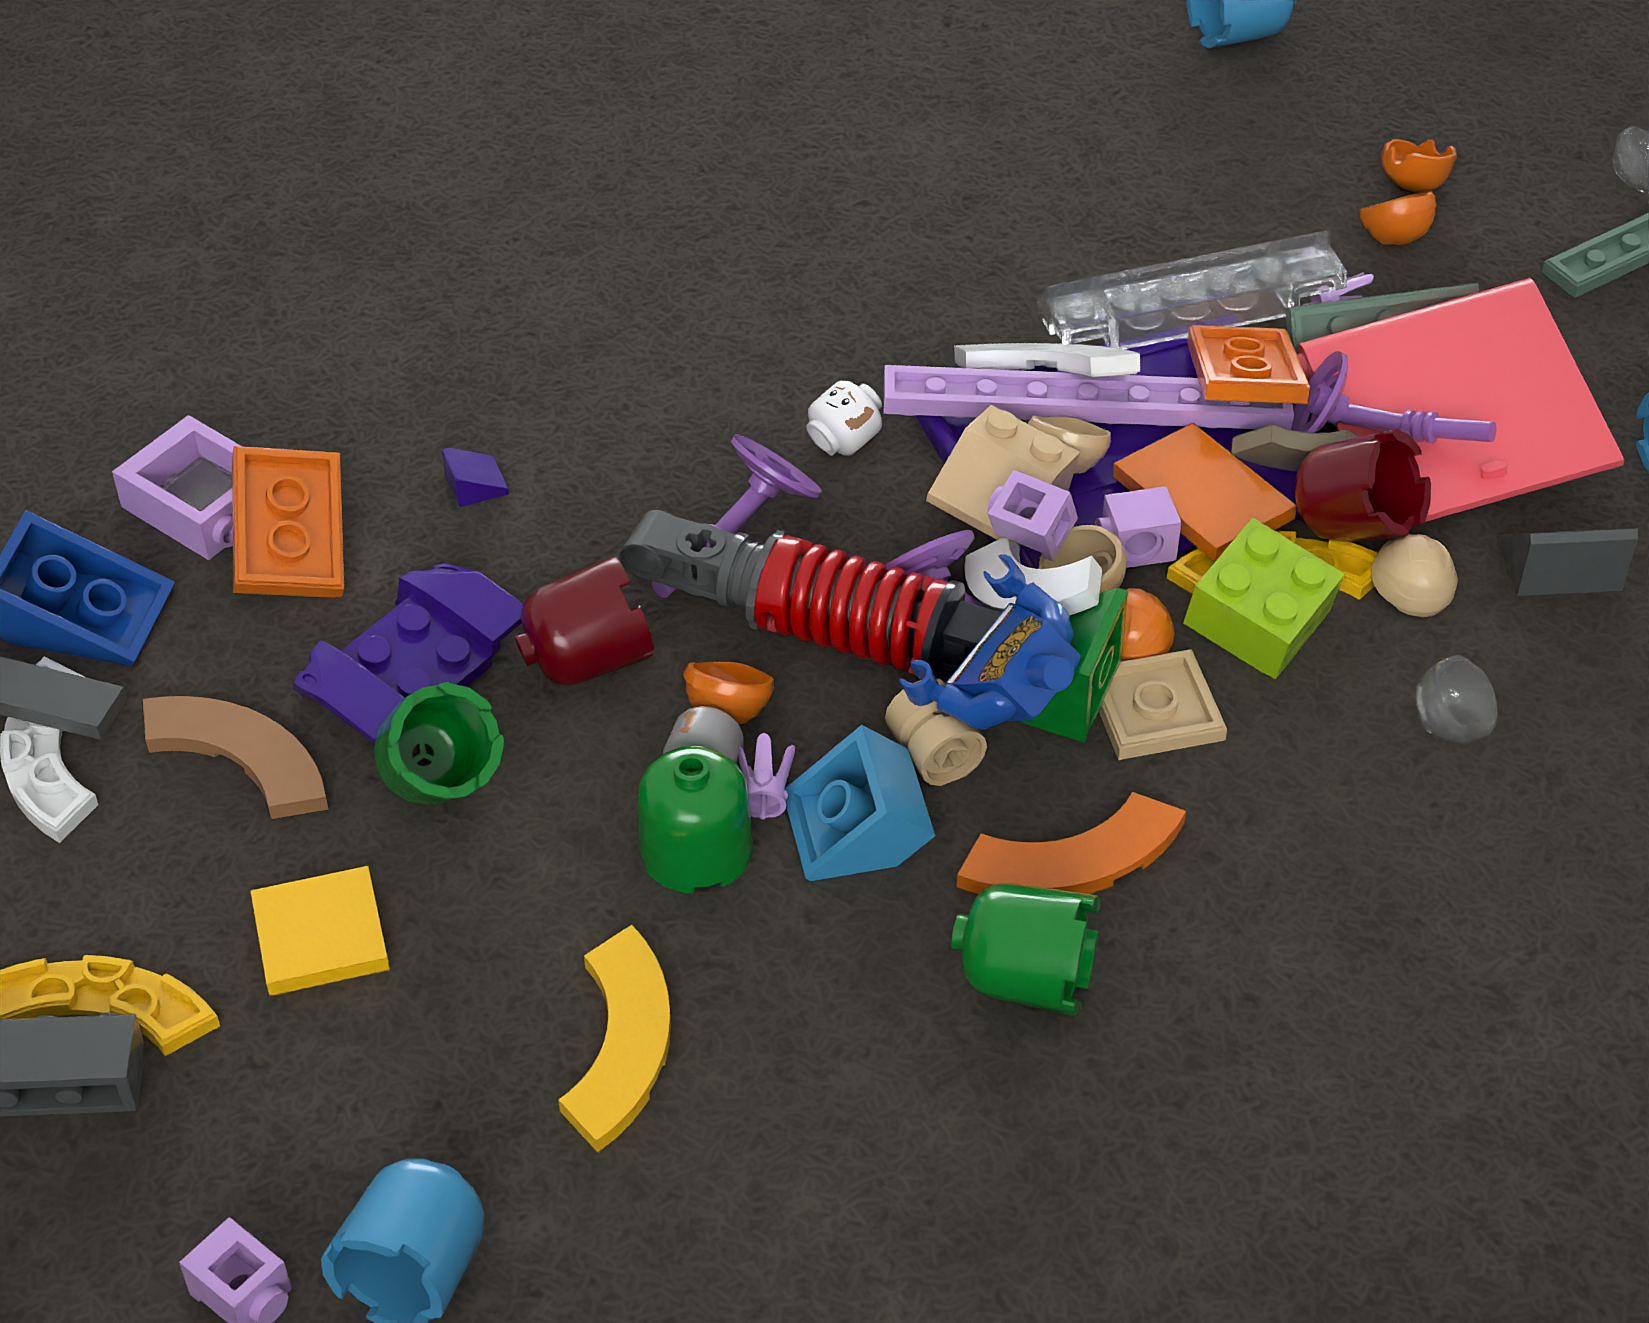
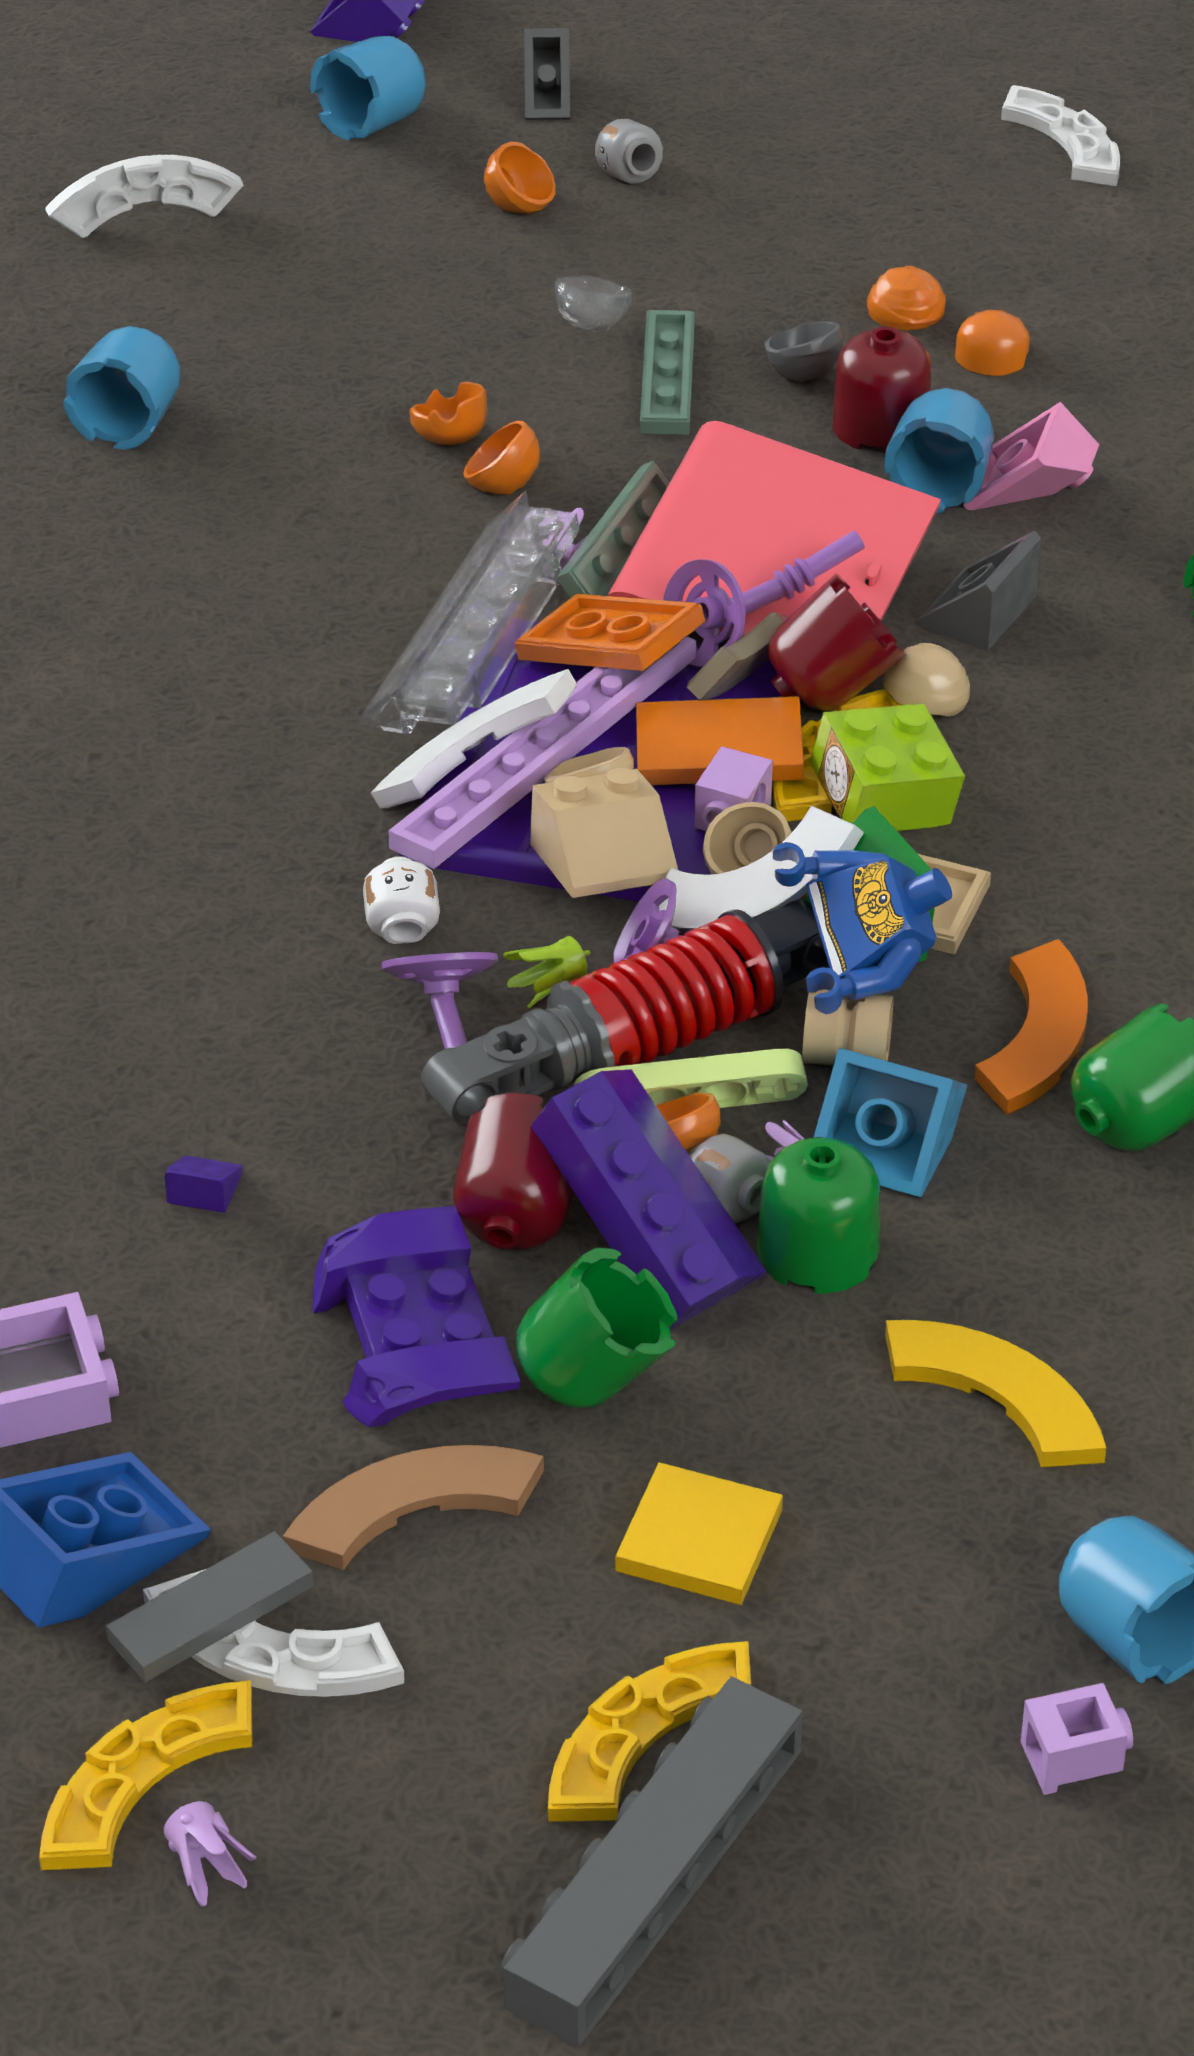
camera: 55 degrees left, 5 degrees down
(287, 522) = (158, 1321): orange tile -> none
(608, 700) = (646, 1191): none -> dark purple slope
(791, 672) = (731, 1078): none -> yellowish green beam
(861, 534) = (562, 962): none -> lime piece
(1028, 497) = (696, 822): lavender brick -> none
(1456, 701) = (1084, 737): clear piece -> none

